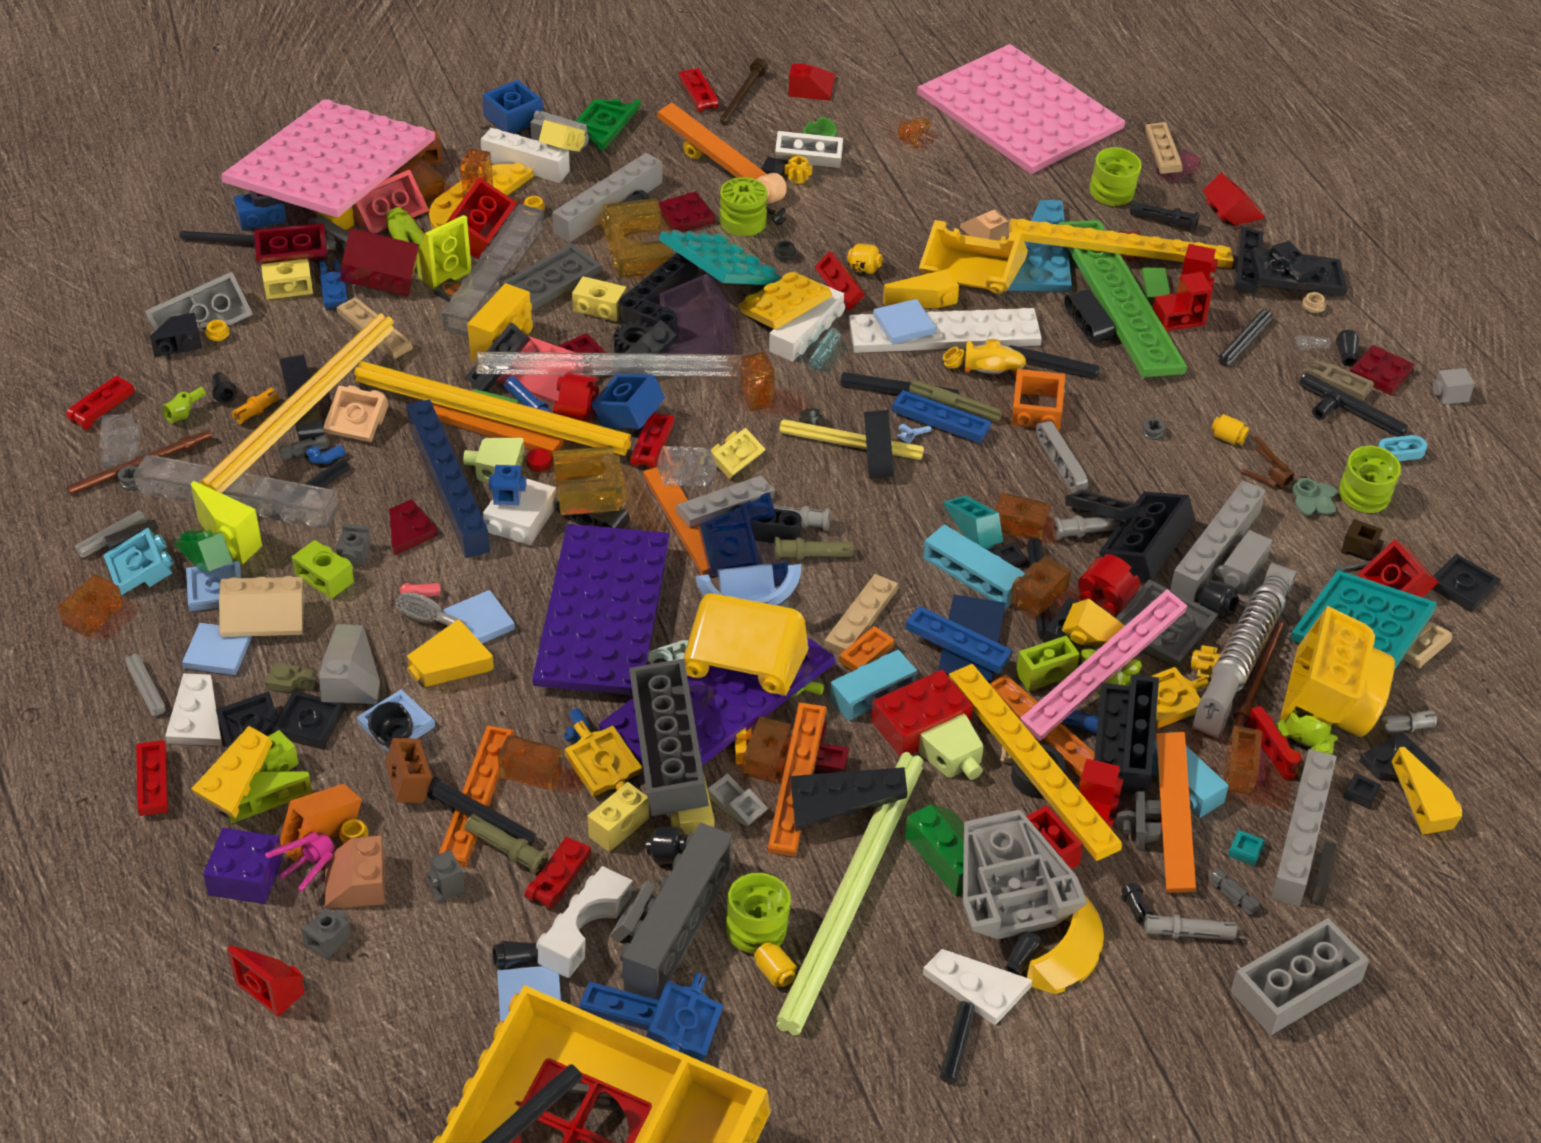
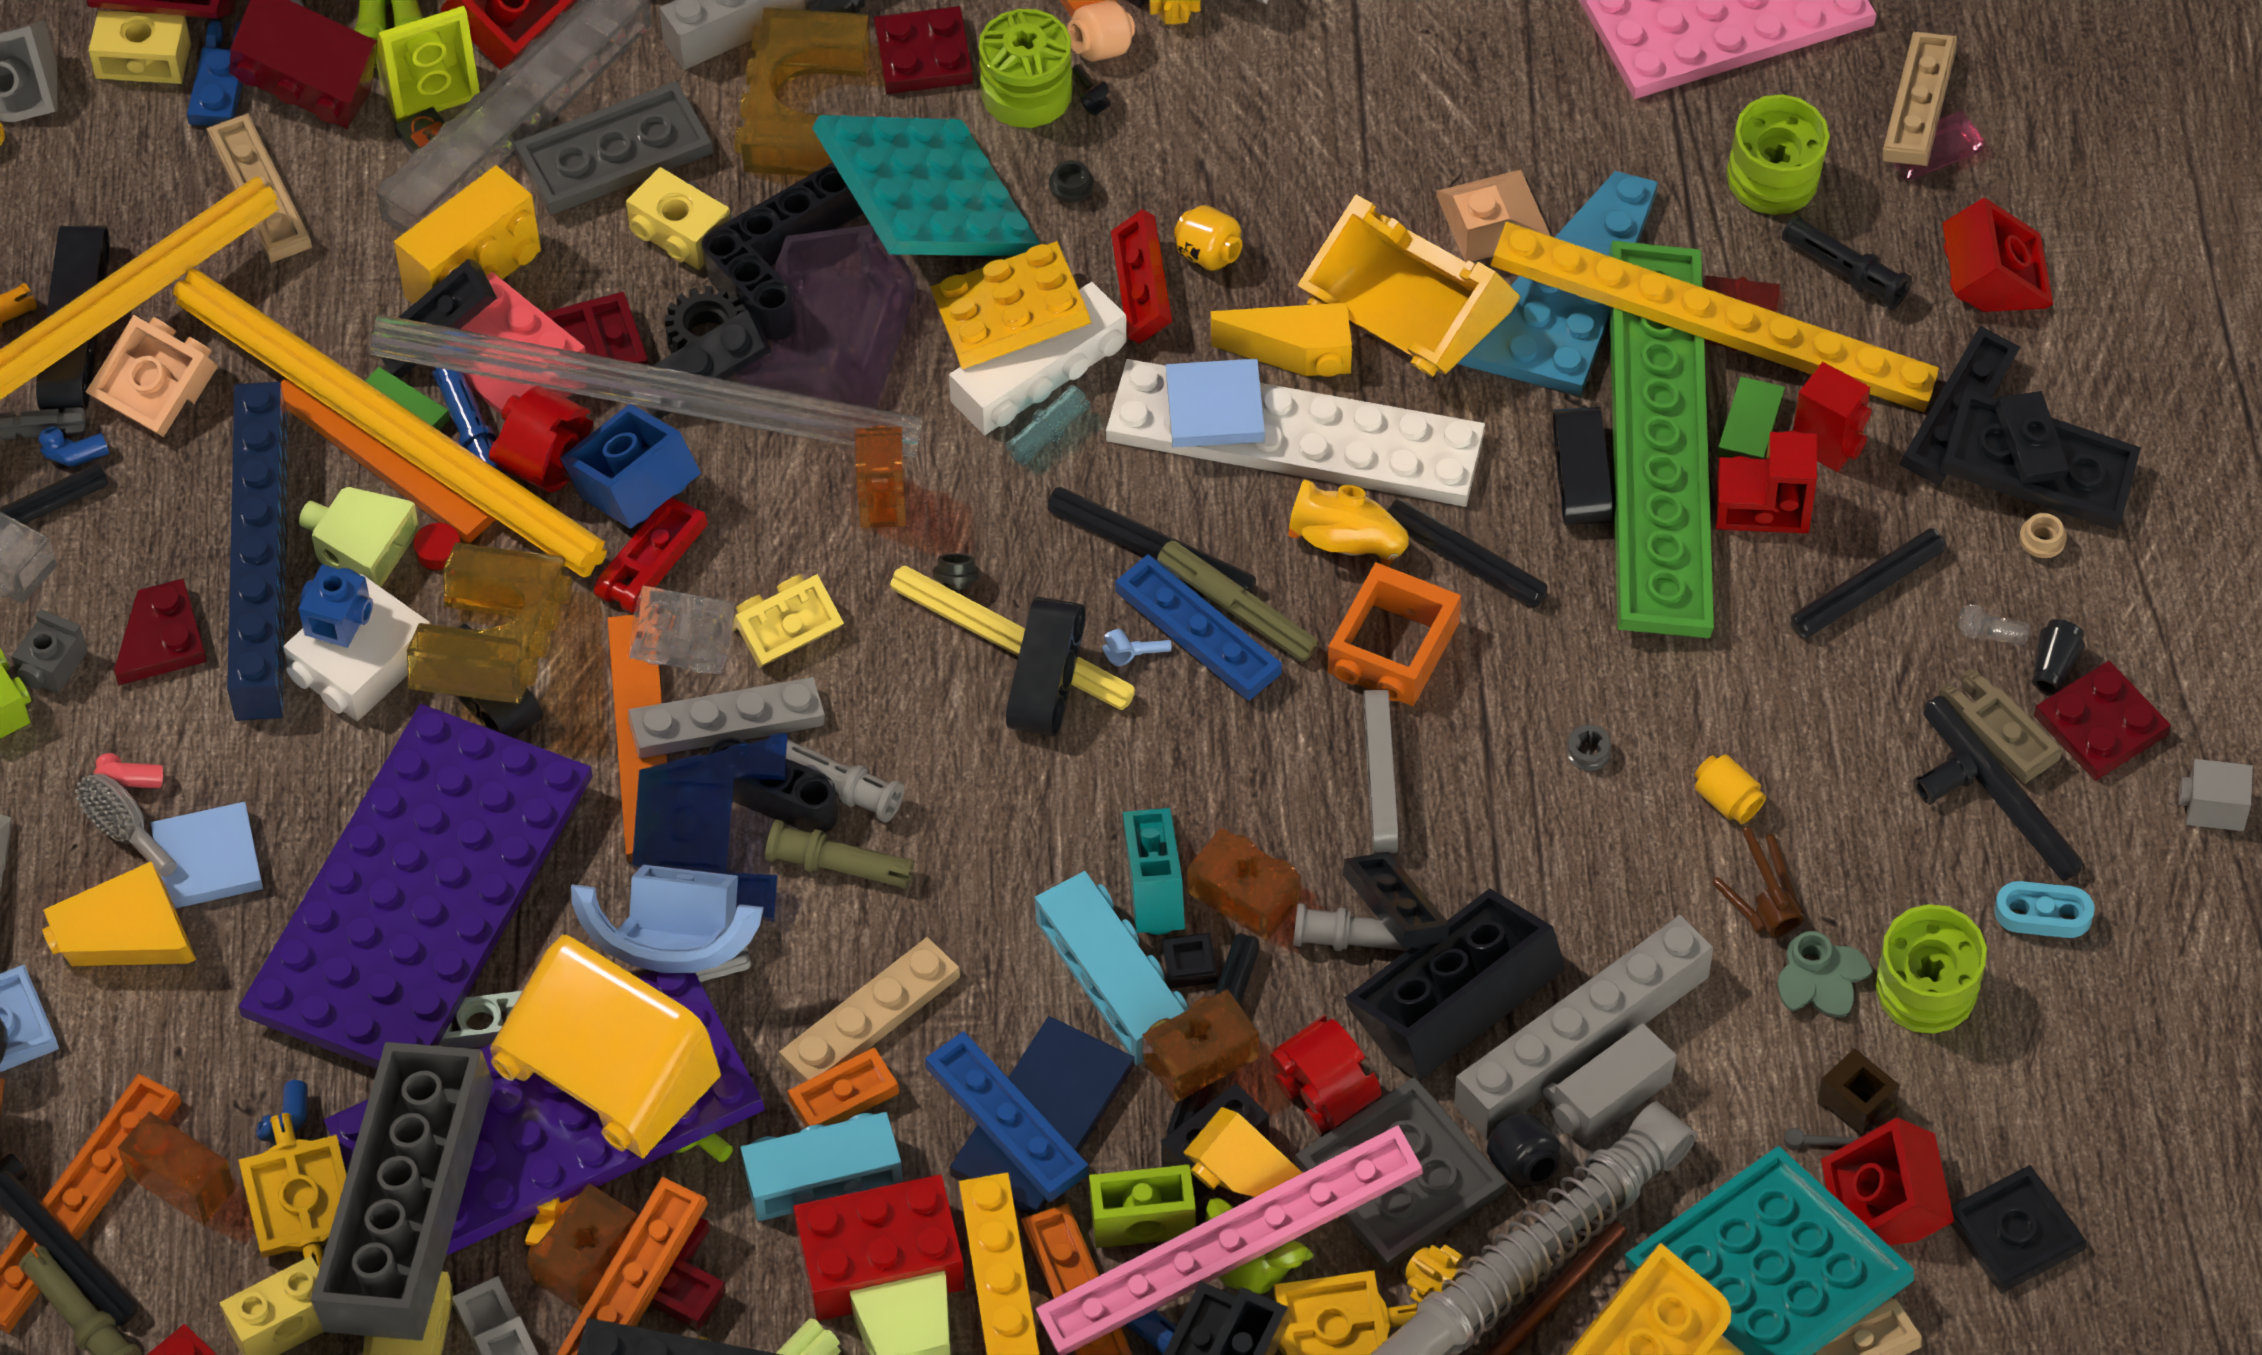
camera: 20 degrees right, 10 degrees up
(954, 357) = (1277, 502): yellow plate -> none

